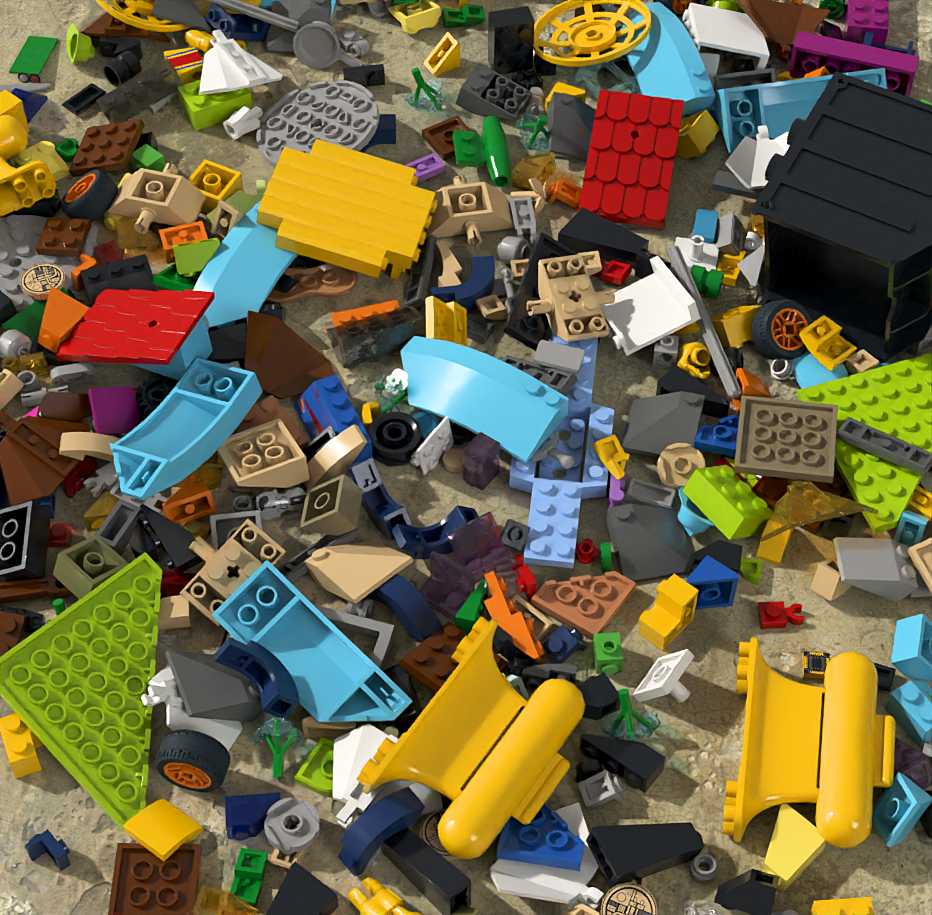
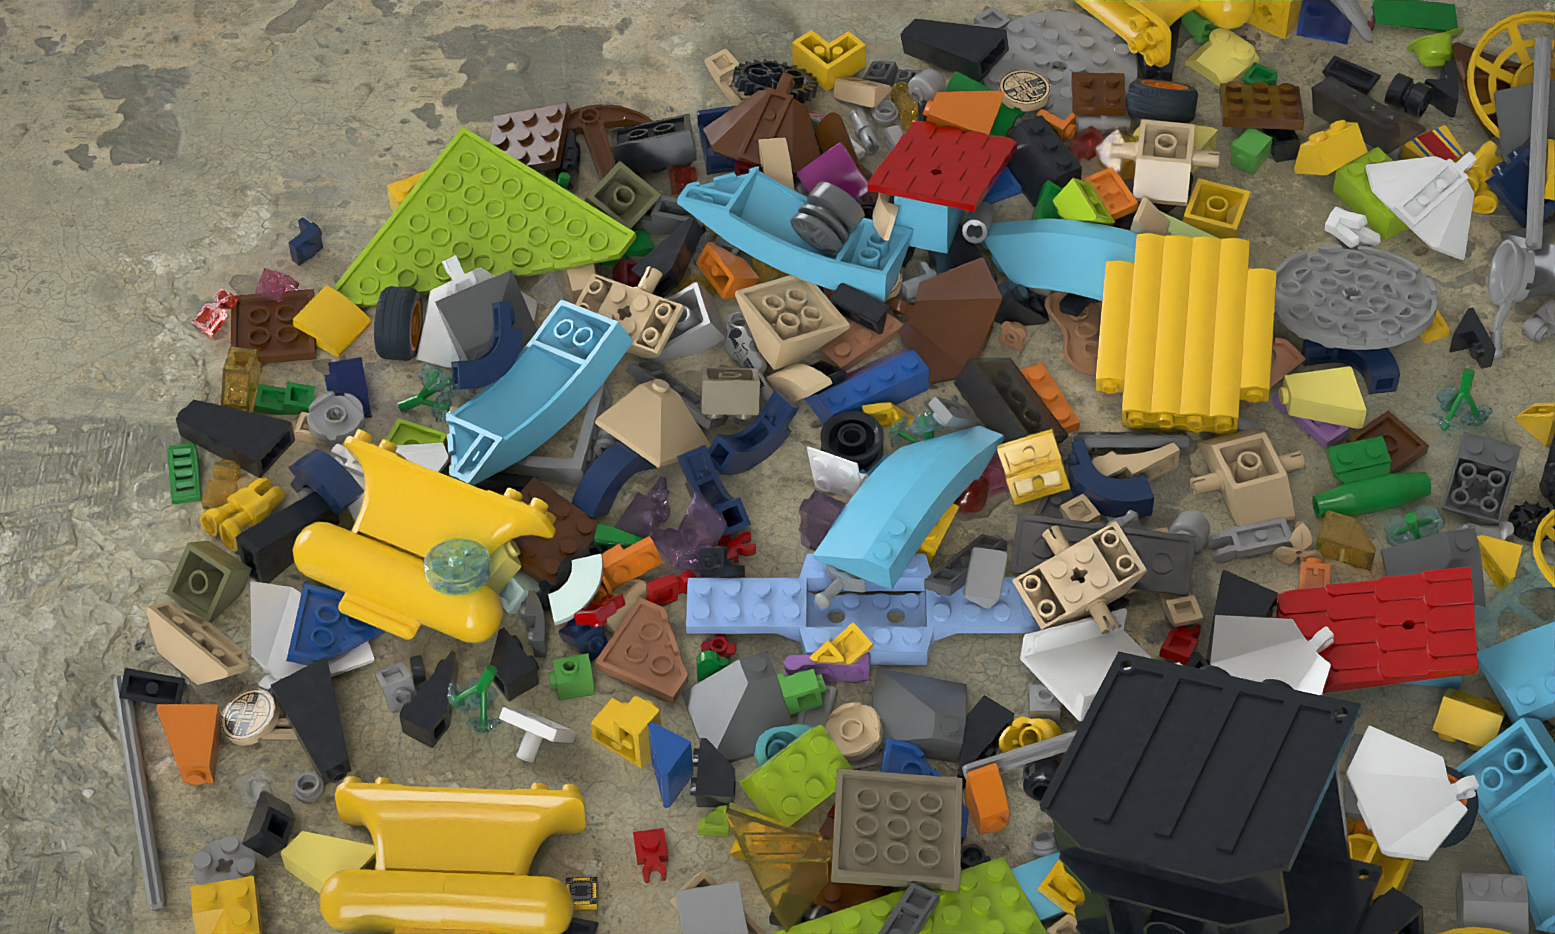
camera: 85 degrees right, 0 degrees up
(107, 876) = (274, 284): none -> clear pink bracket
(172, 114) = (1330, 149): none -> yellow slope
(180, 369) = (884, 215): none -> tan slope
(183, 401) = (827, 218): none -> dark grey wheel
(263, 408) = (860, 308): none -> black slope
(301, 325) = (1017, 331): none -> medium nougat plate
(390, 363) = (952, 414): none -> light grey hinge
(414, 148) = (1325, 397): none -> light yellow slope
(533, 630) = (578, 590): none -> light aqua tile
(533, 711) = (444, 567): none -> clear light blue wheel
(555, 619) = (597, 612): none -> red plate
(642, 490) = (802, 691): none -> bright green brick
(660, 214) = (1271, 650): none -> white panel

